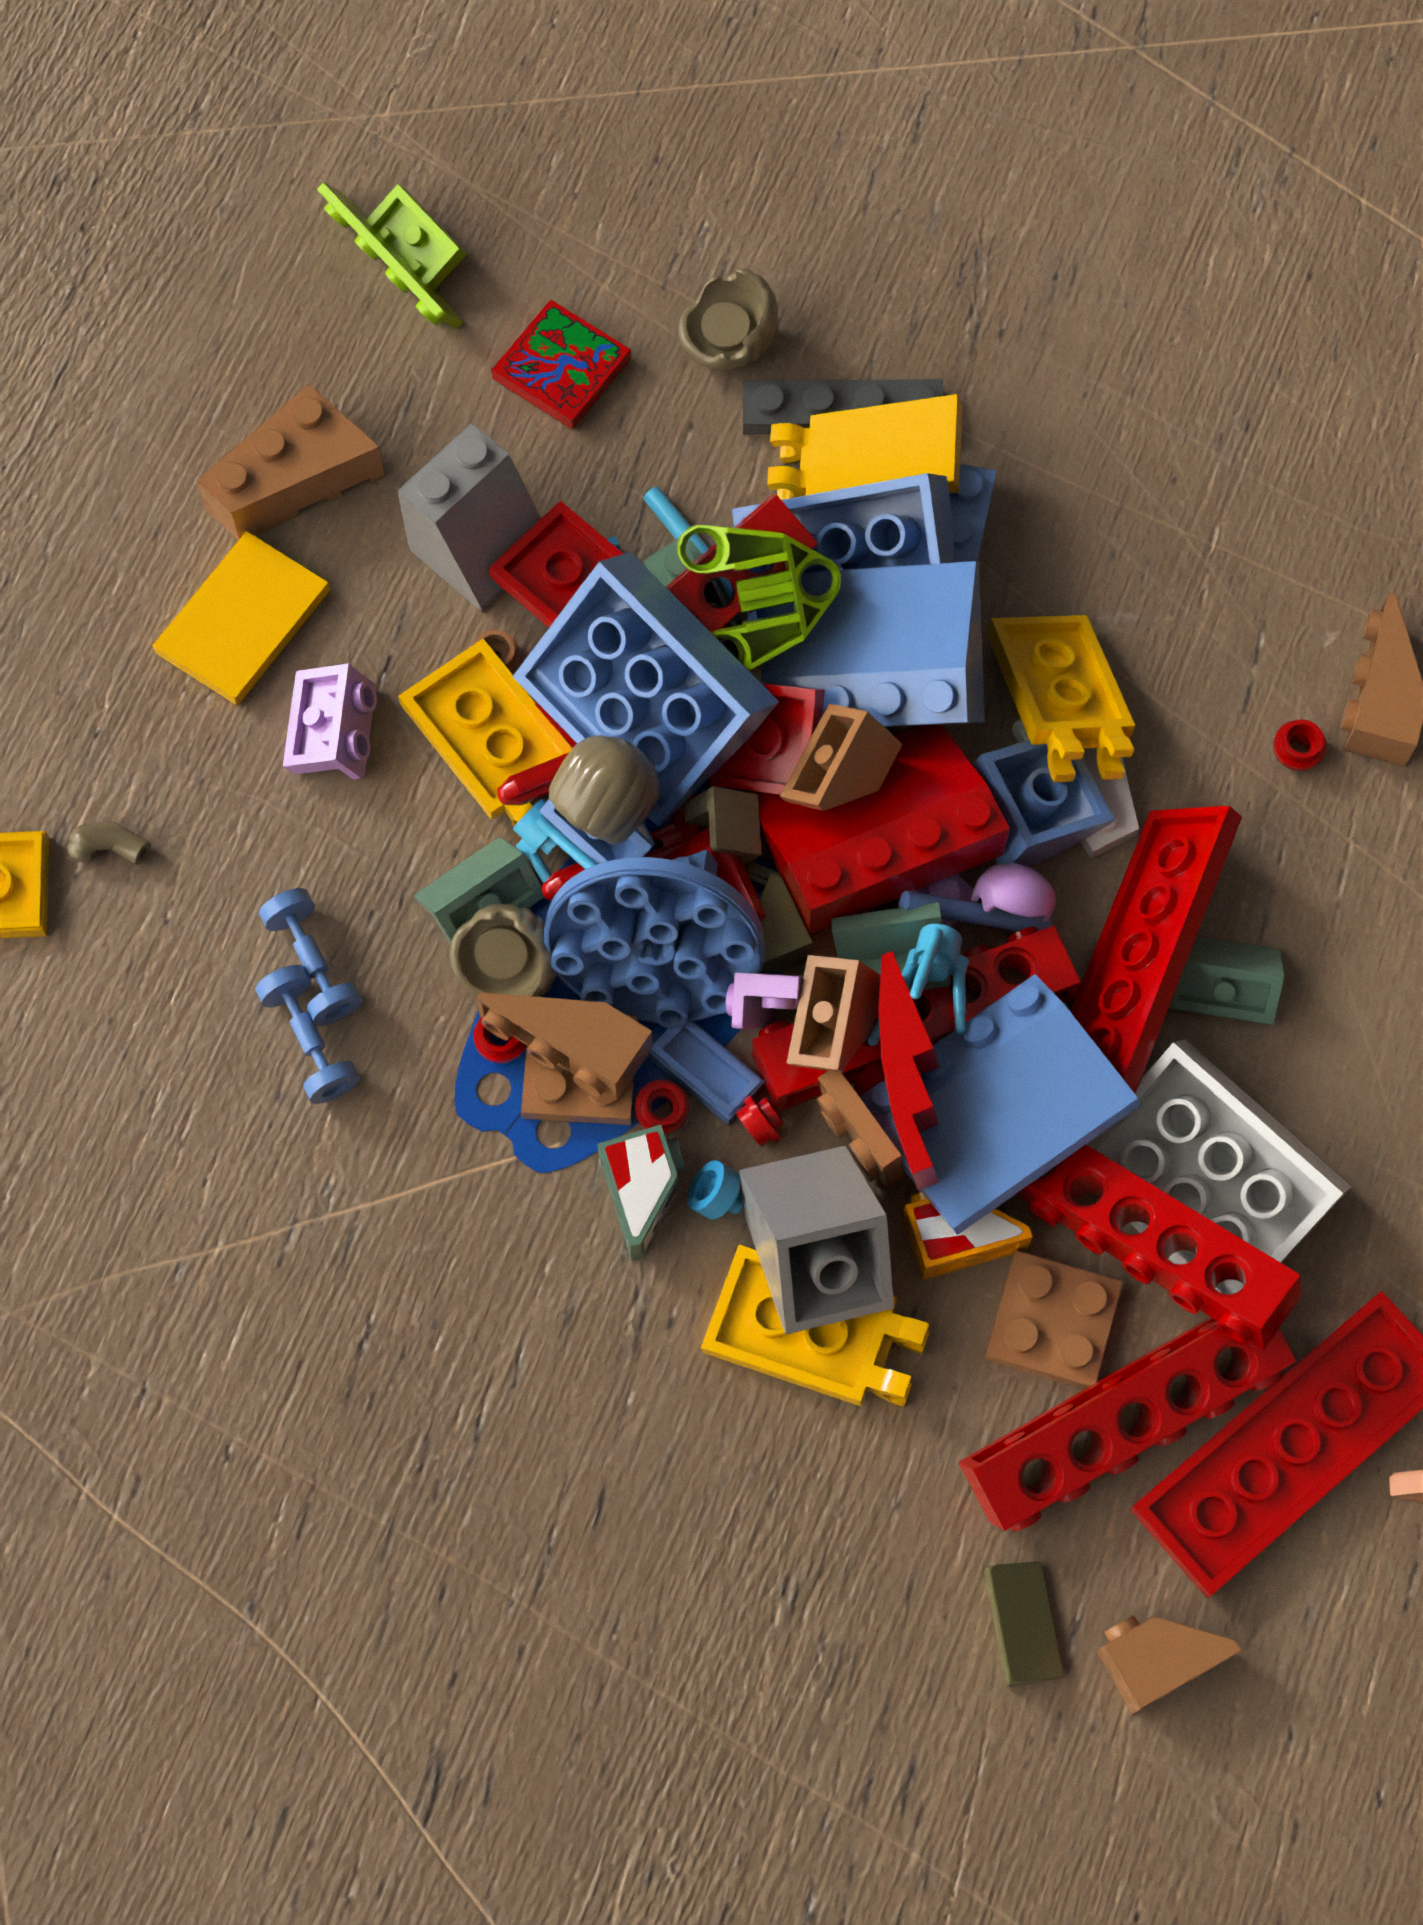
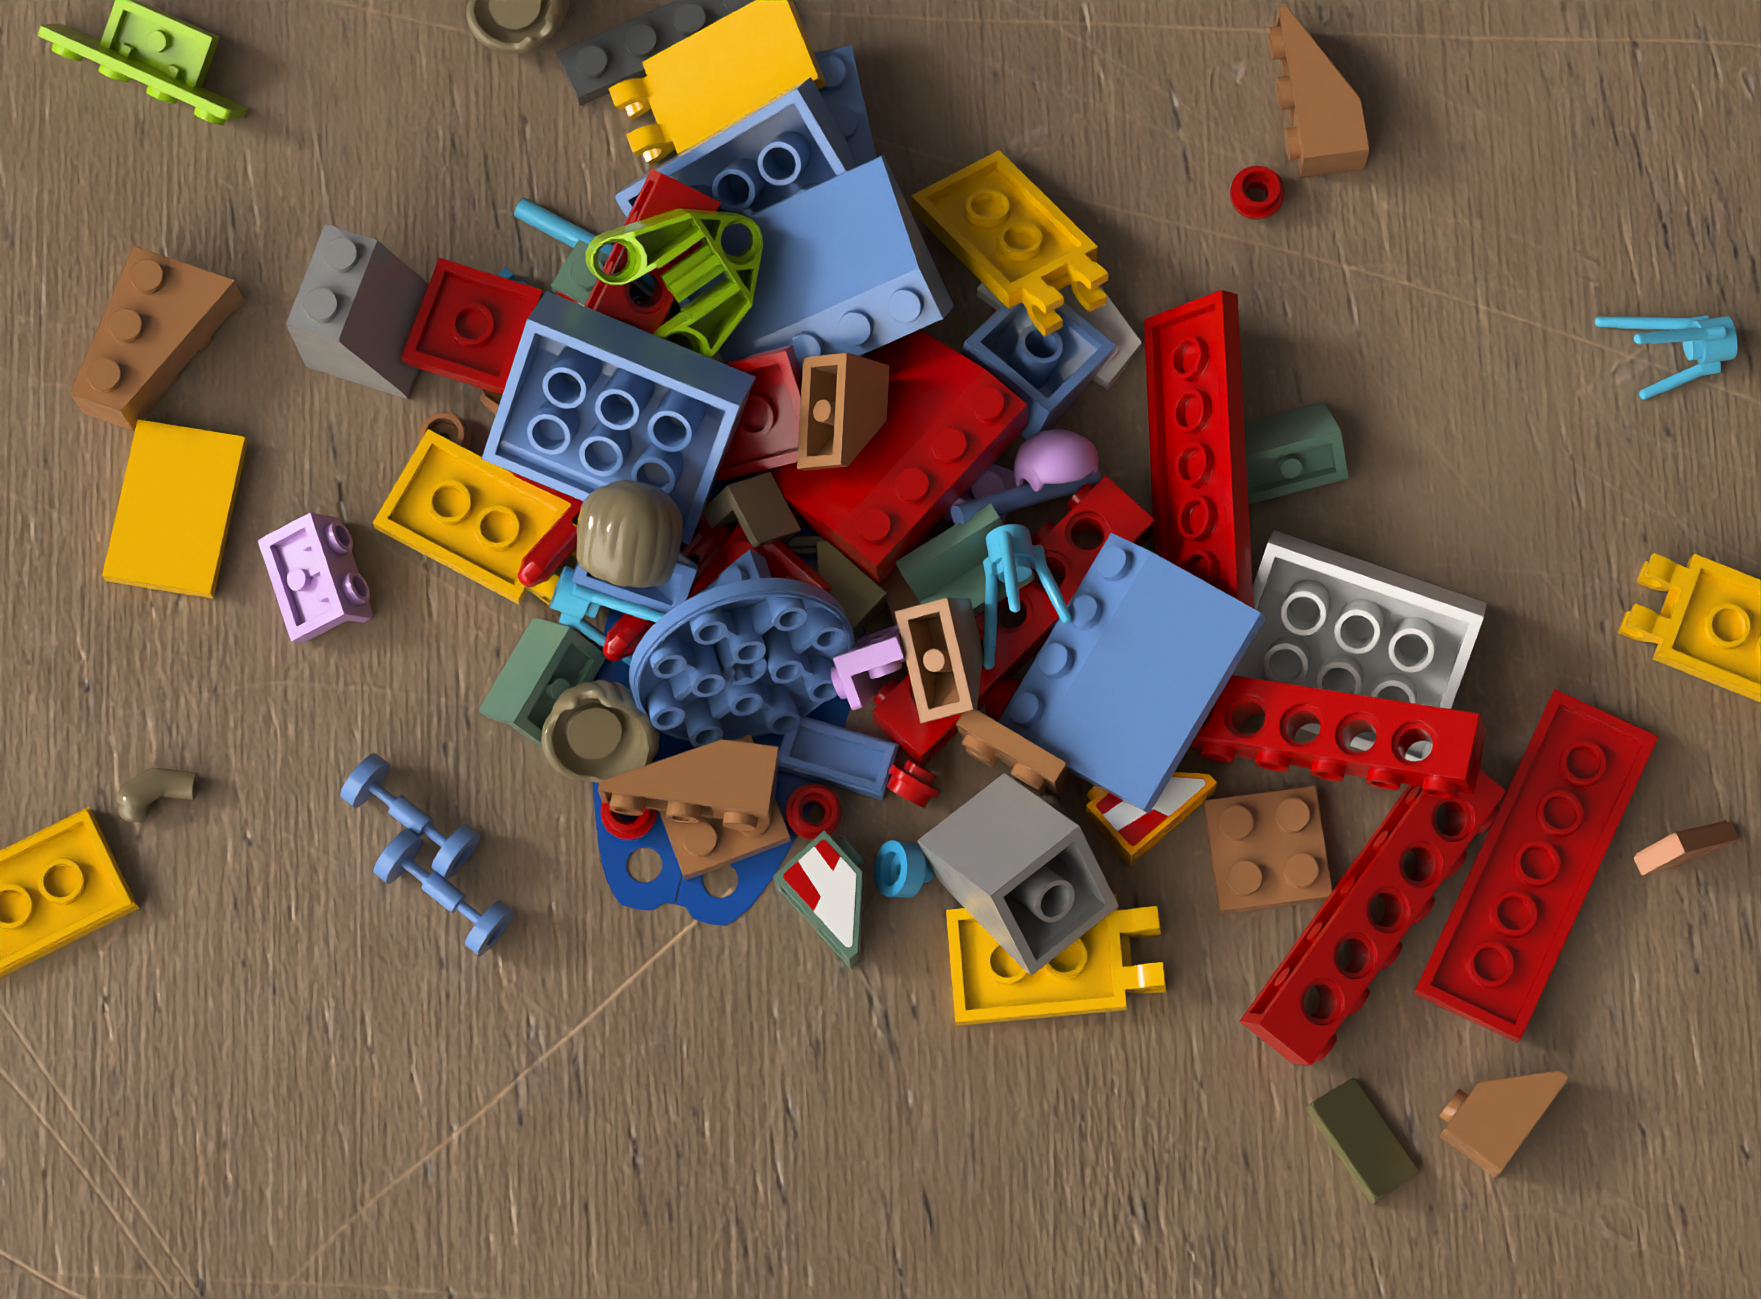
camera: 20 degrees left, 5 degrees up
(561, 364) = (367, 111): tile -> none
(906, 1055) = (1028, 665): red slope -> none

